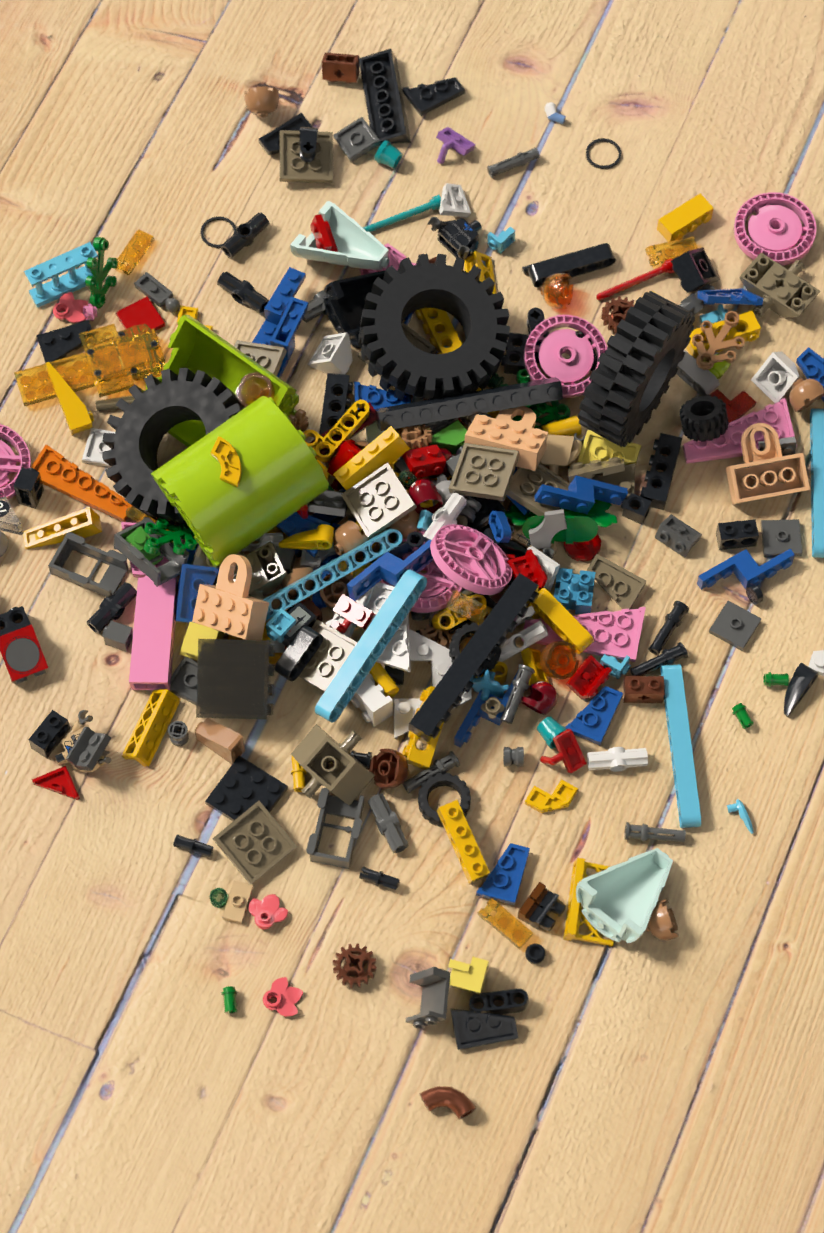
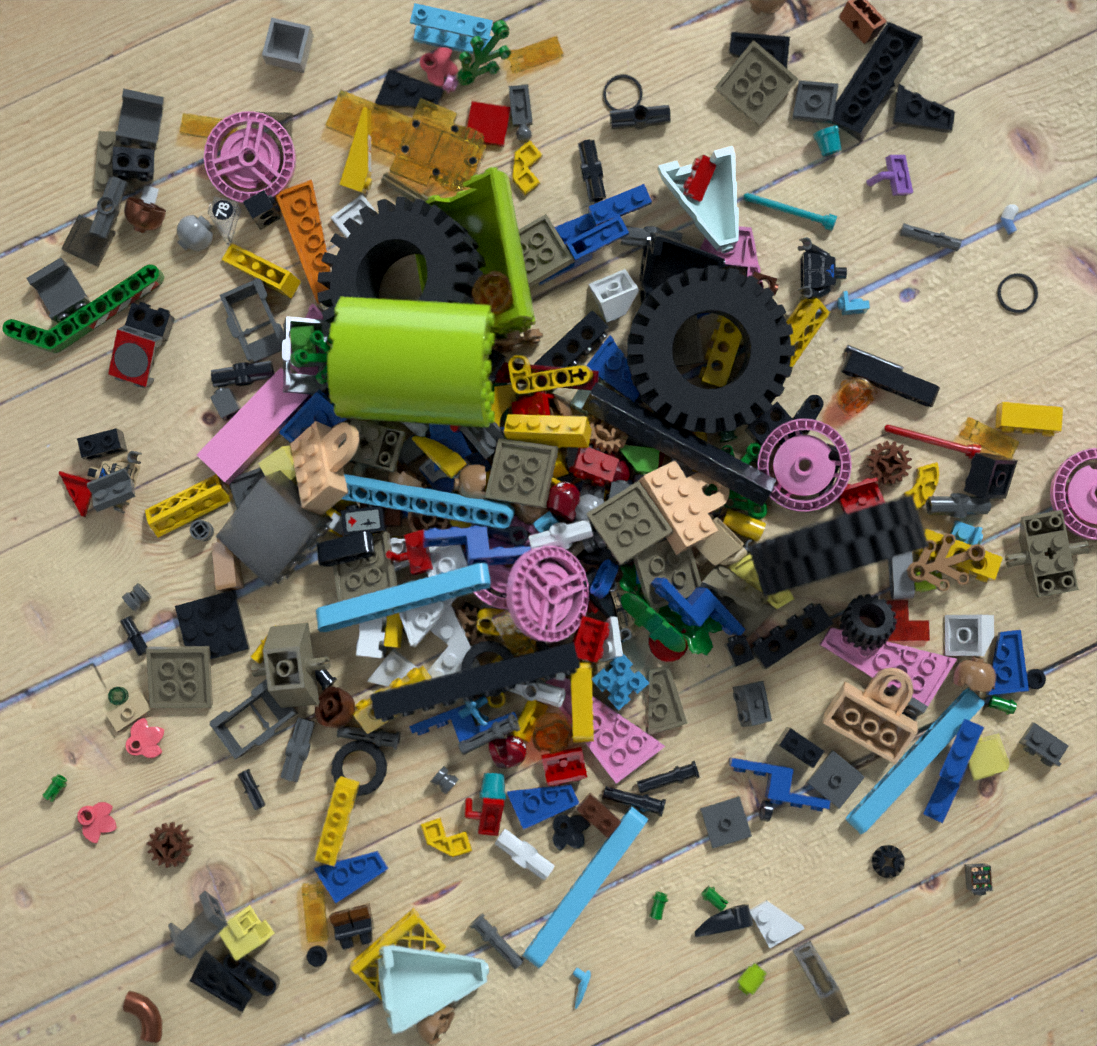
camera: 40 degrees right, 20 degrees up
(170, 817) = (136, 597): none -> dark grey wheel
(229, 461) = (400, 350): yellow tile -> none
(279, 625) = (346, 515): medium azure bracket -> none
(308, 143) = (767, 72): black piece -> none
(402, 477) = (560, 469): bush -> none
(454, 201) = (844, 233): white wing -> none
(492, 701) = (459, 724): dark tan plate -> none
(542, 535) = (642, 616): light grey tile -> none
(617, 668) = (593, 770): medium azure bracket -> none
(636, 719) = (571, 834): none -> black plate
(729, 296) = (996, 528): blue wing -> none

